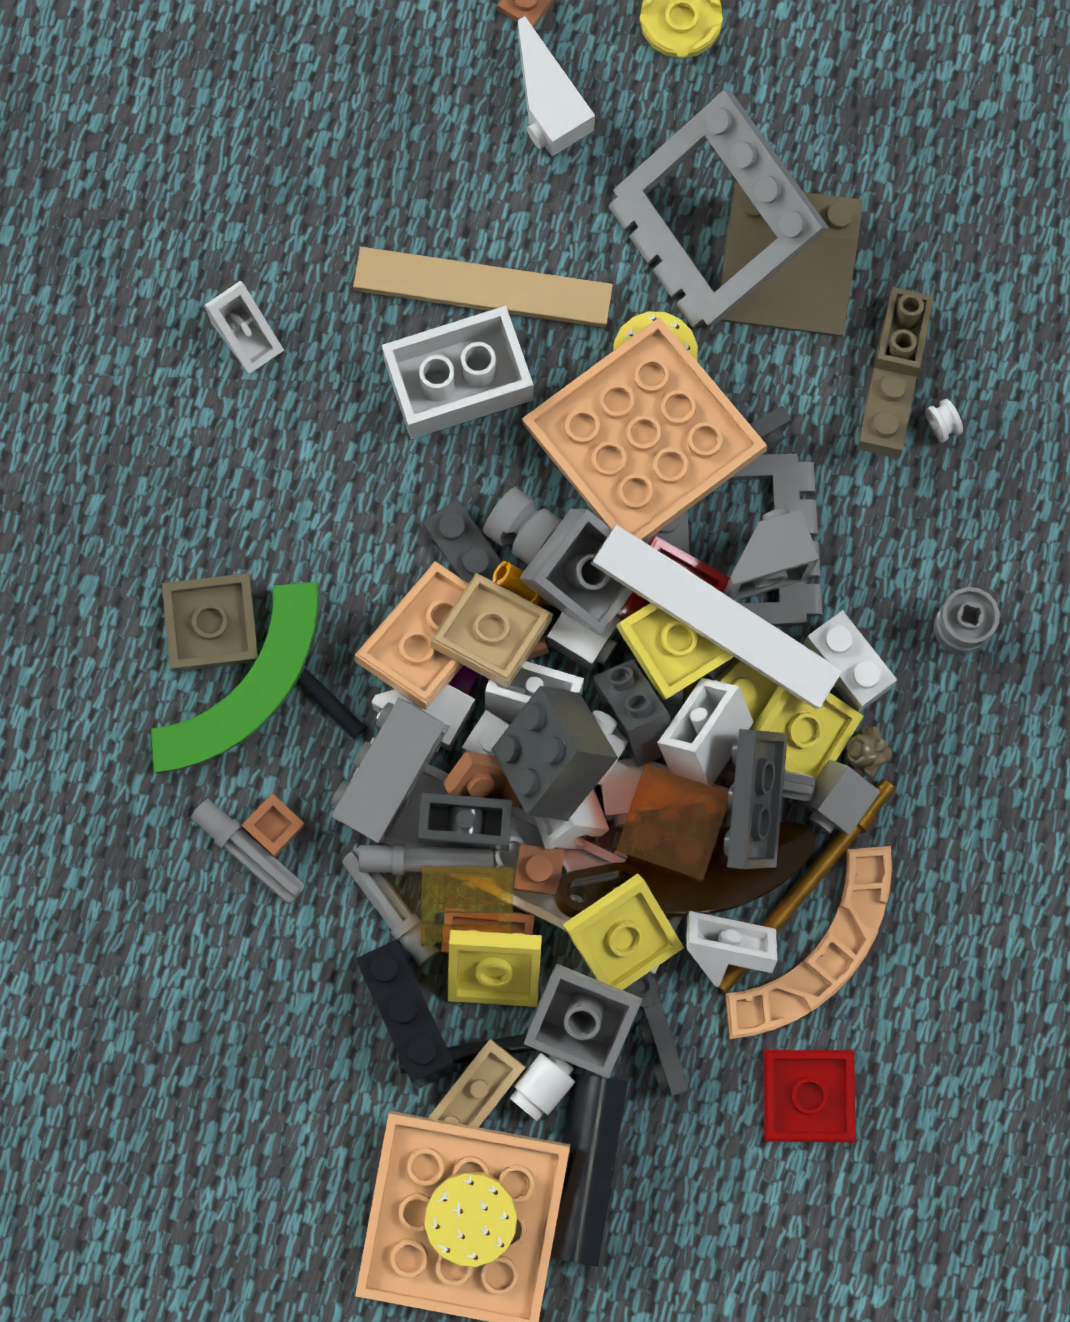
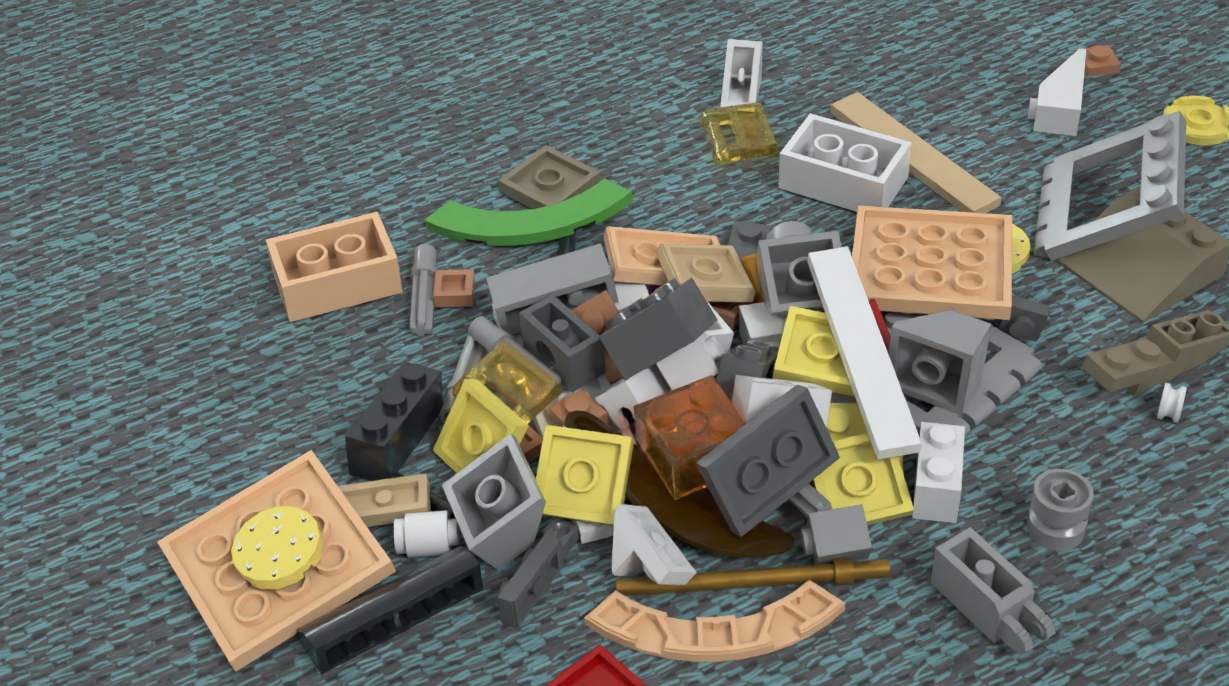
camera: 50 degrees right, 35 degrees down
(156, 908) = (334, 266): none -> light nougat brick
(317, 390) = (749, 129): none -> clear yellow plate
(867, 751) = (893, 533): dark tan plant -> none
(986, 748) = (989, 591): none -> light grey hinge

